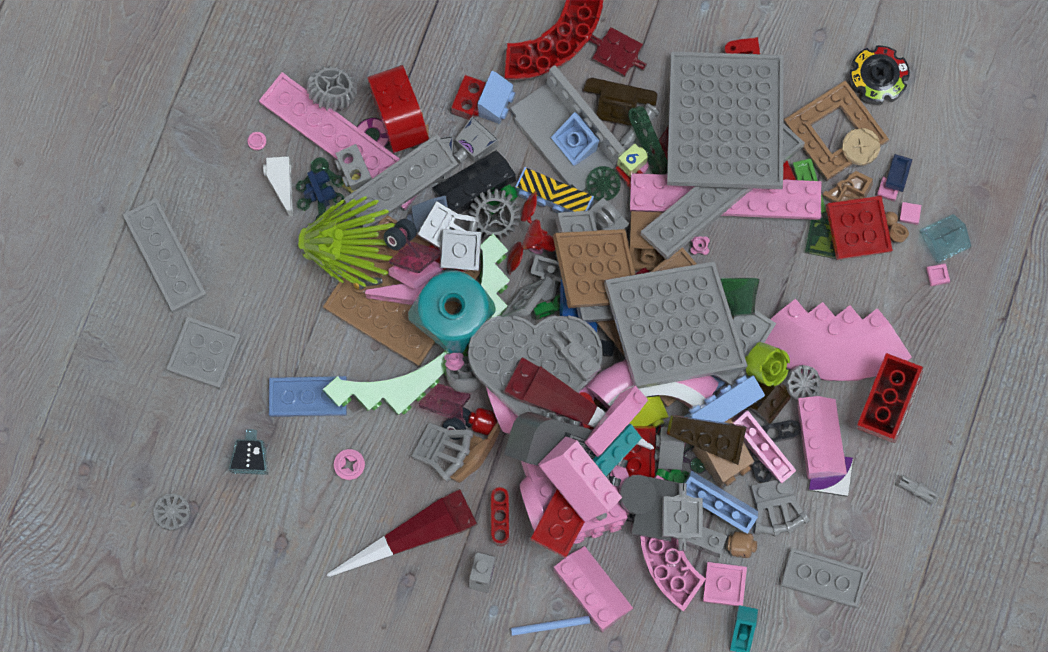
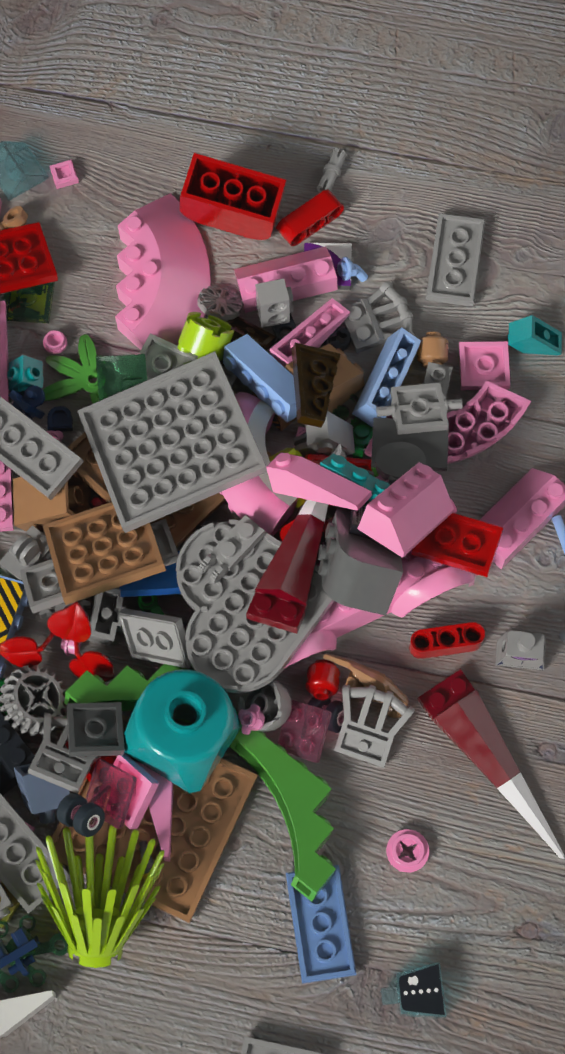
camera: 100 degrees left, 5 degrees down
(719, 253) = (59, 419): none -> dark blue tile
(729, 227) = (27, 403): none -> dark blue hips
(755, 229) = (24, 373): none -> teal brick
(758, 265) = (70, 368): none -> bright green plant
(785, 255) = (55, 342): none -> bright pink plate
(790, 420) = (273, 302): none -> light grey brick
(820, 487) = (347, 269): none -> light blue plate
(874, 465) = (310, 217): none -> red beam

